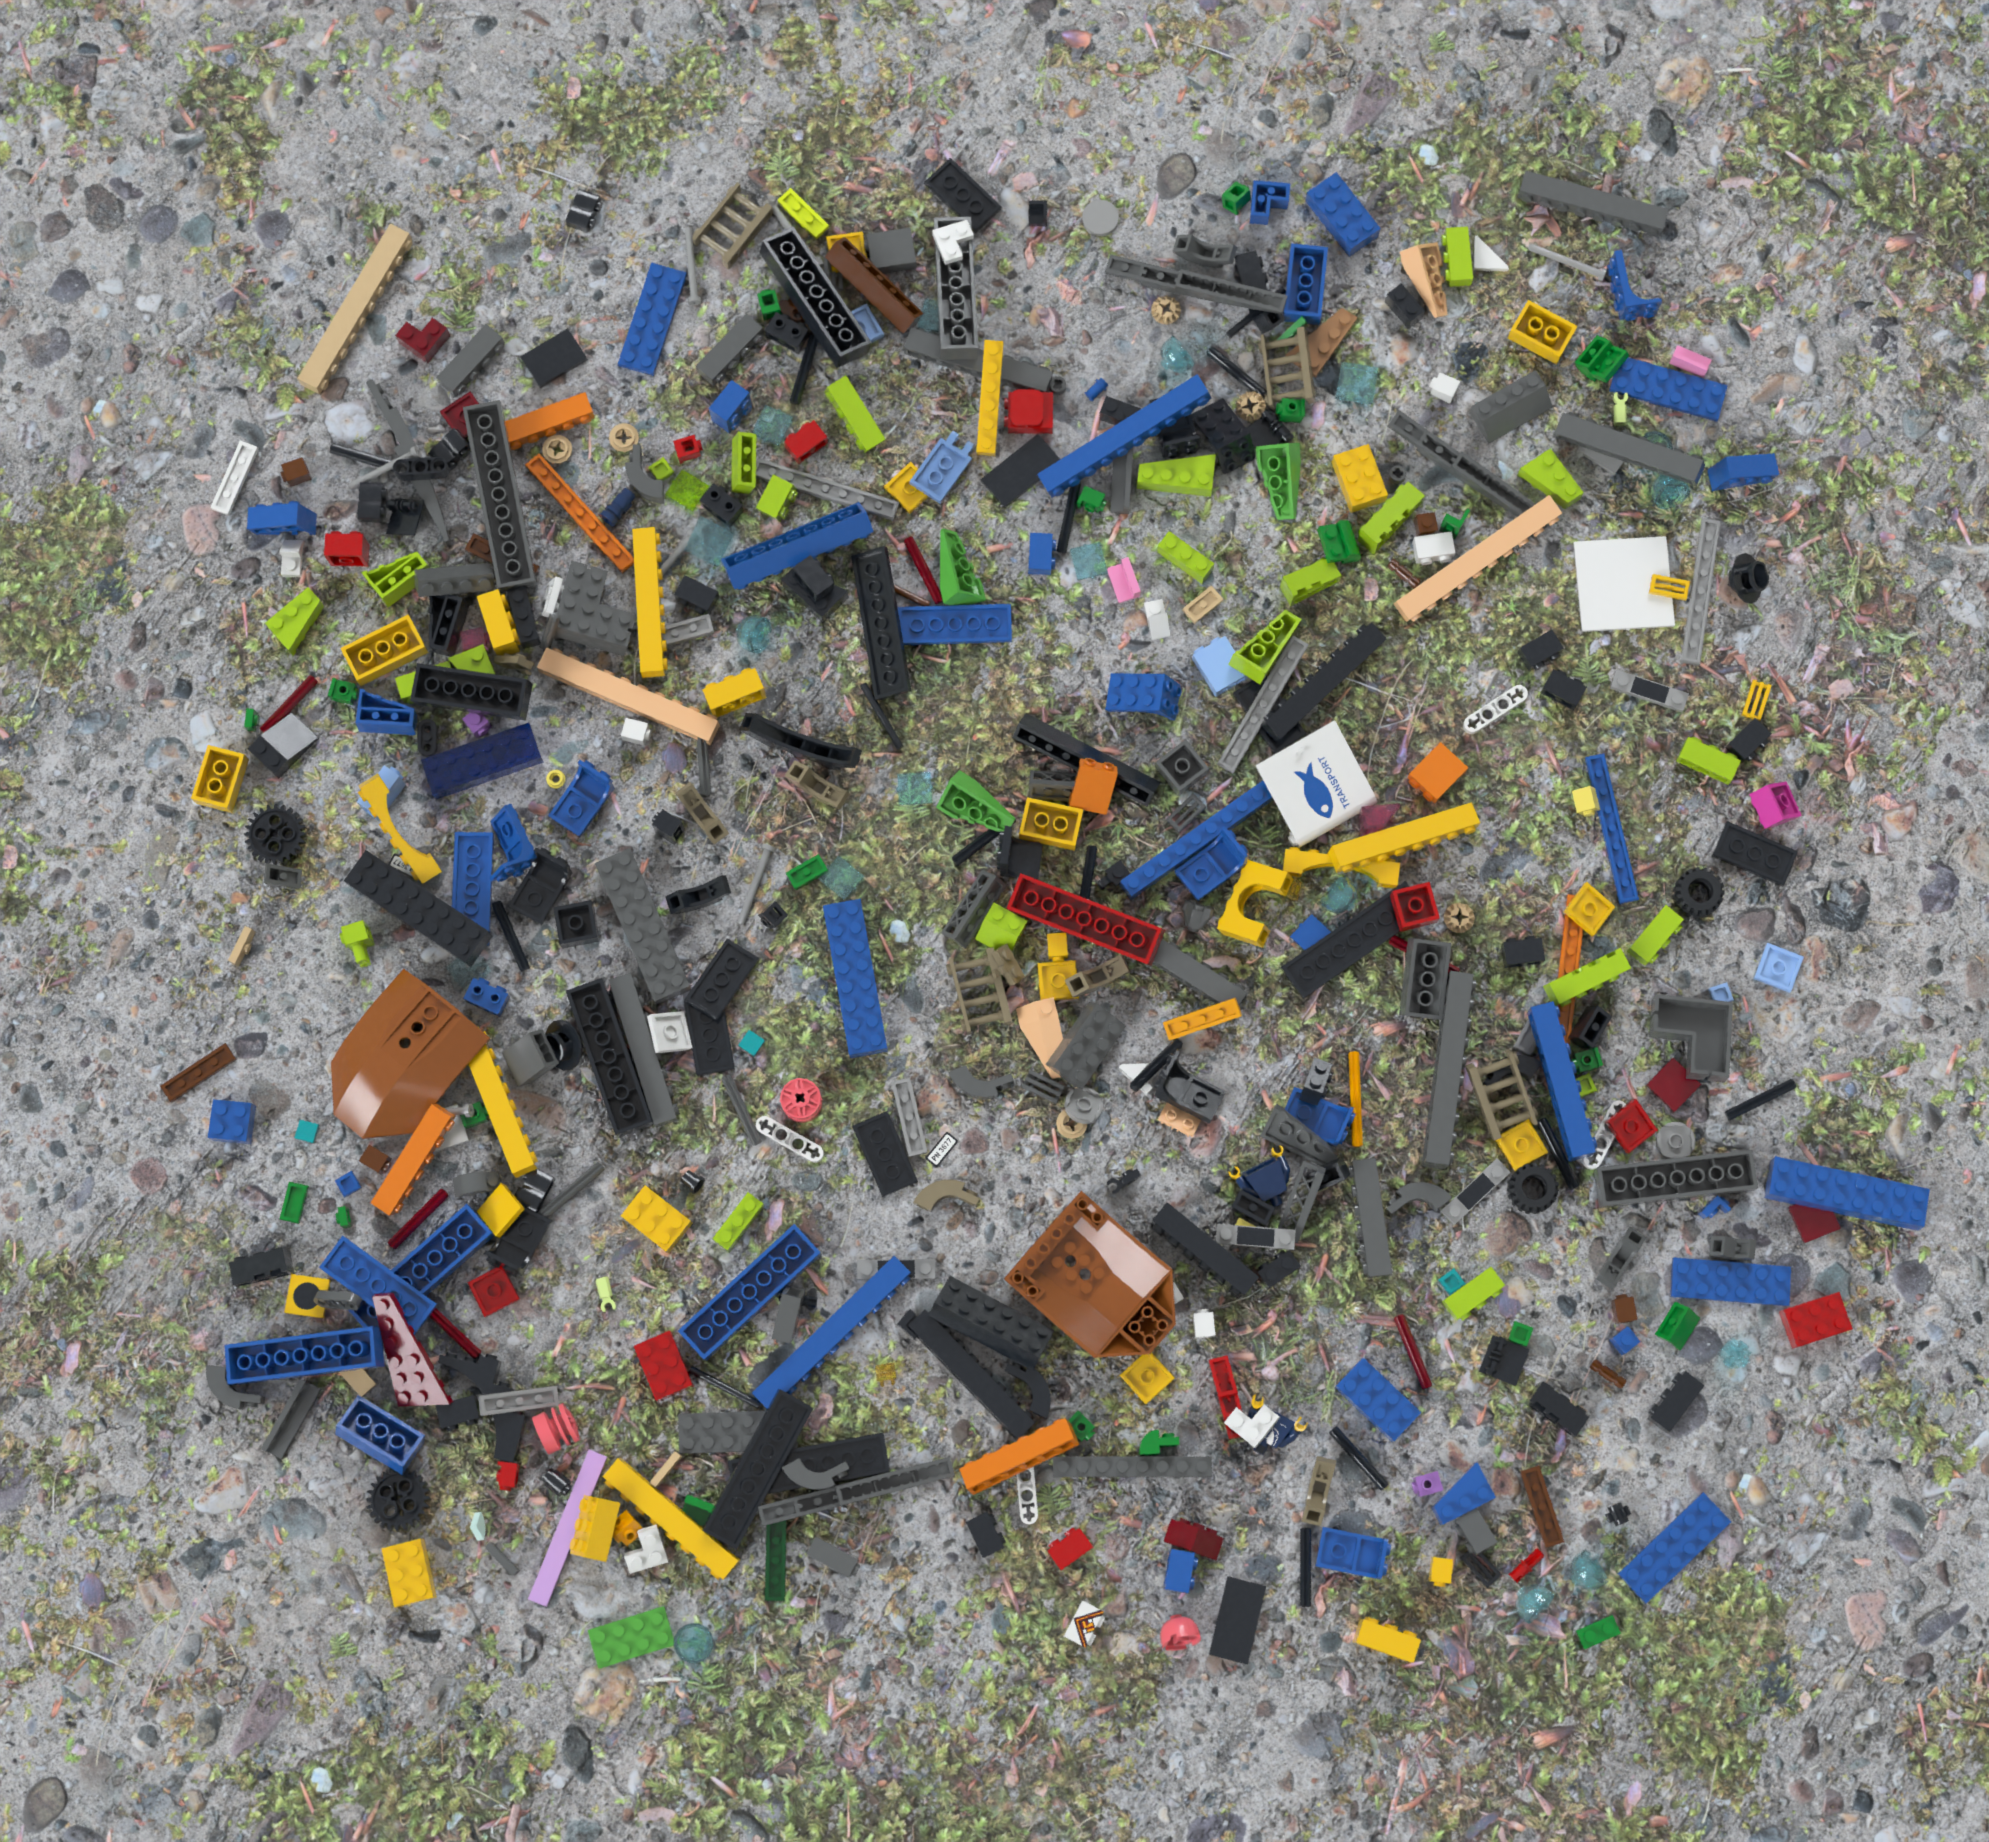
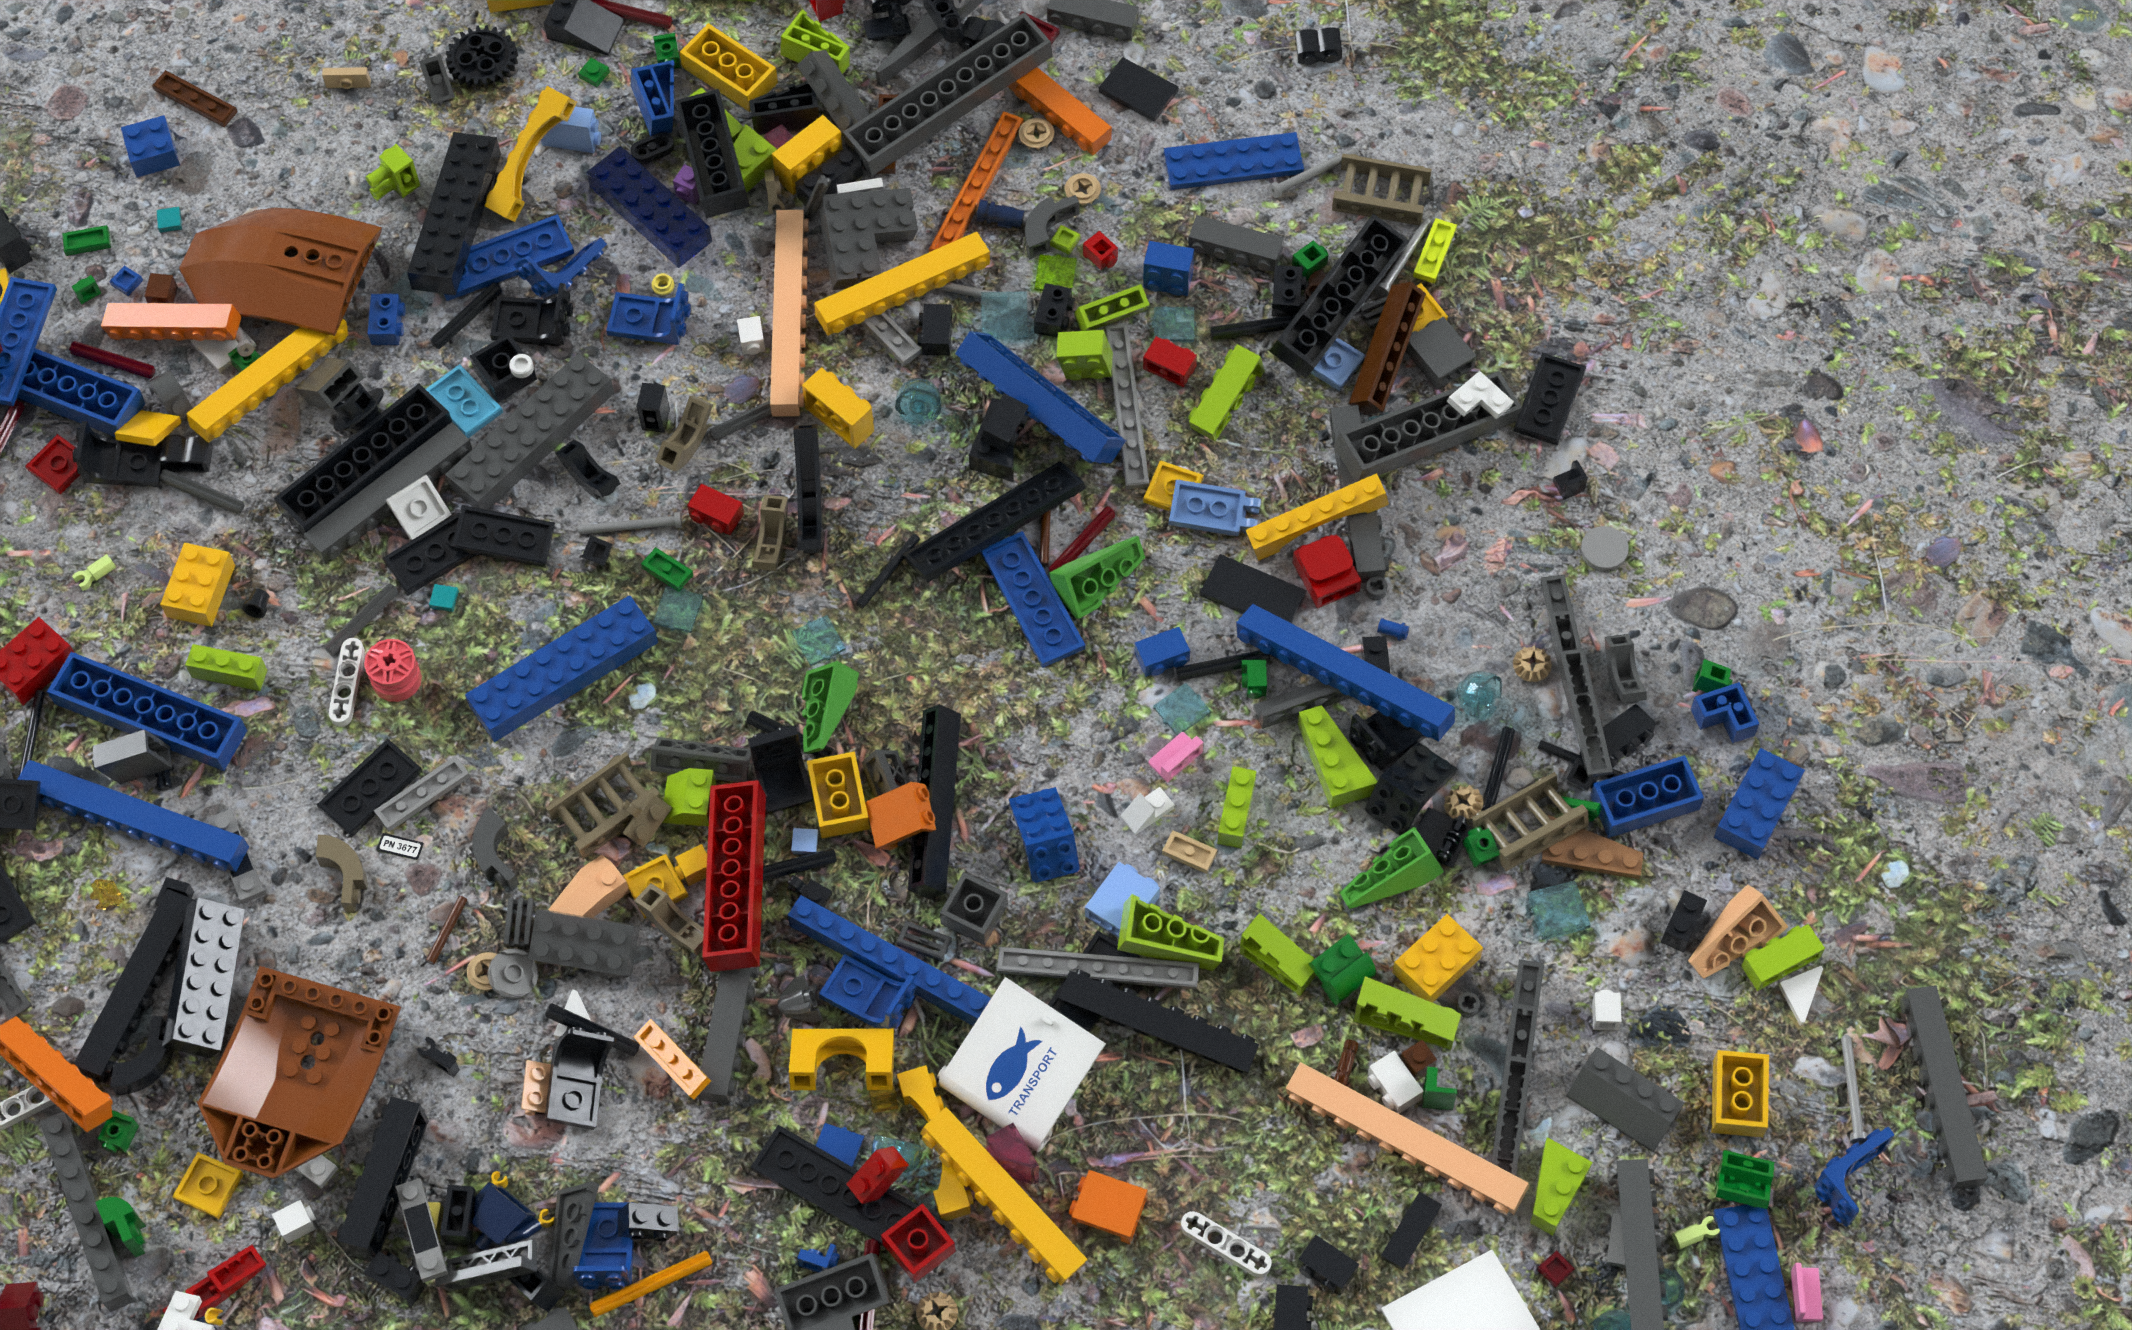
camera: 65 degrees right, 15 degrees down
(331, 755) = (593, 72): none -> green plate
(586, 965) = (465, 400): none -> medium azure tile
(589, 908) = (521, 366): none -> white tile
(774, 817) = (715, 509): none -> red brick
(1025, 1140) = (446, 930): none -> reddish brown bar
(1071, 863) = (804, 841): none -> light blue tile
(1356, 912) = (877, 1174): none -> red brick
(1389, 982) = (815, 1261): none -> blue bracket
(1538, 587) = (1411, 1231): none -> black tile
(1604, 508) = (1556, 1269): none -> dark red tile

